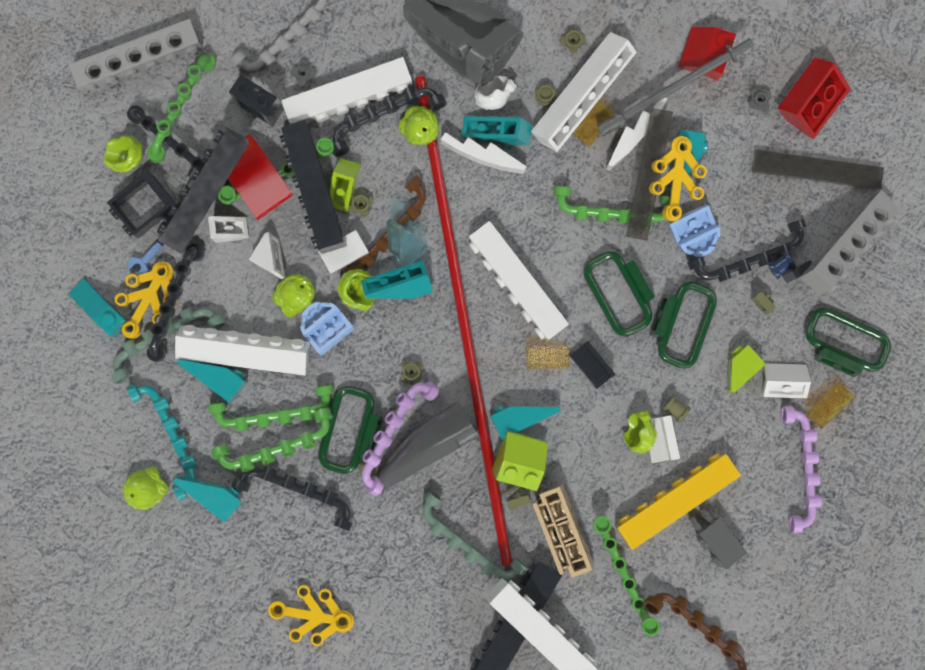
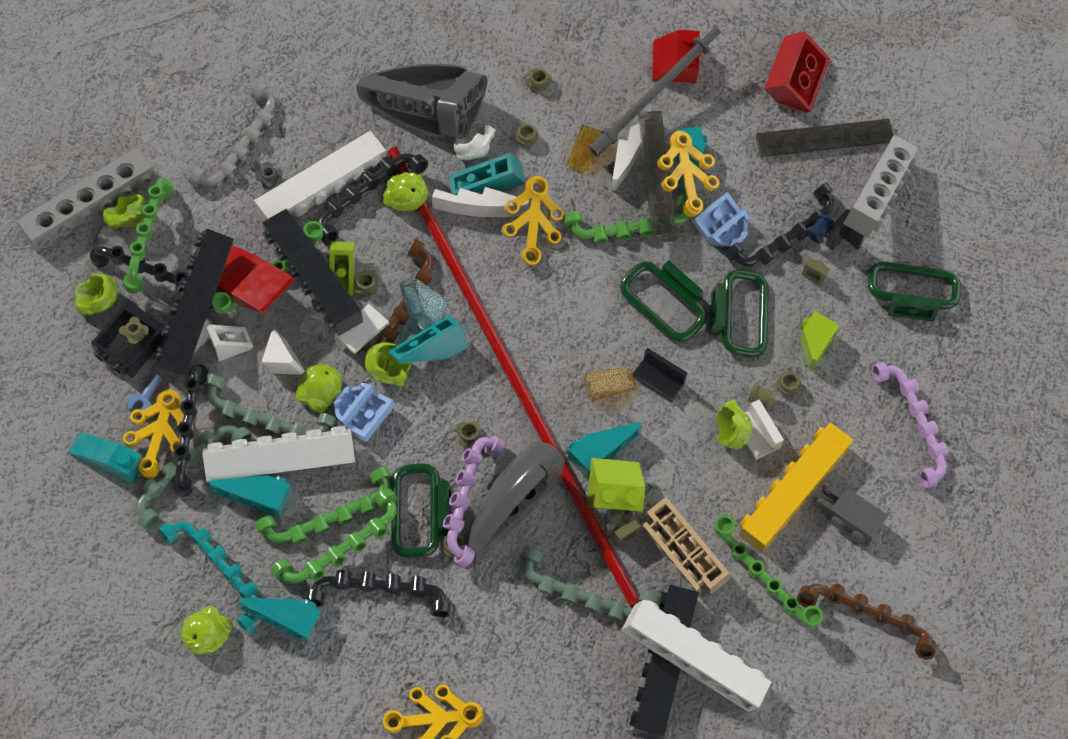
camera: 20 degrees left, 20 degrees down
(149, 206) = (138, 335): none -> olive plate
(166, 80) = (126, 213): none -> lime hair
(230, 305) = (252, 416): none -> sand green bar
(260, 104) = (220, 203): black window -> none
(518, 281) = (555, 314): white brick -> none
(525, 182) = (534, 217): none -> yellow plant
(583, 91) = (565, 120): white brick -> none
(703, 402) = (789, 383): none -> olive plate
(764, 95) = (741, 93): dark grey plate -> none
(786, 381) = (866, 341): white panel -> none
(830, 405) = (919, 351): clear yellow slope -> none

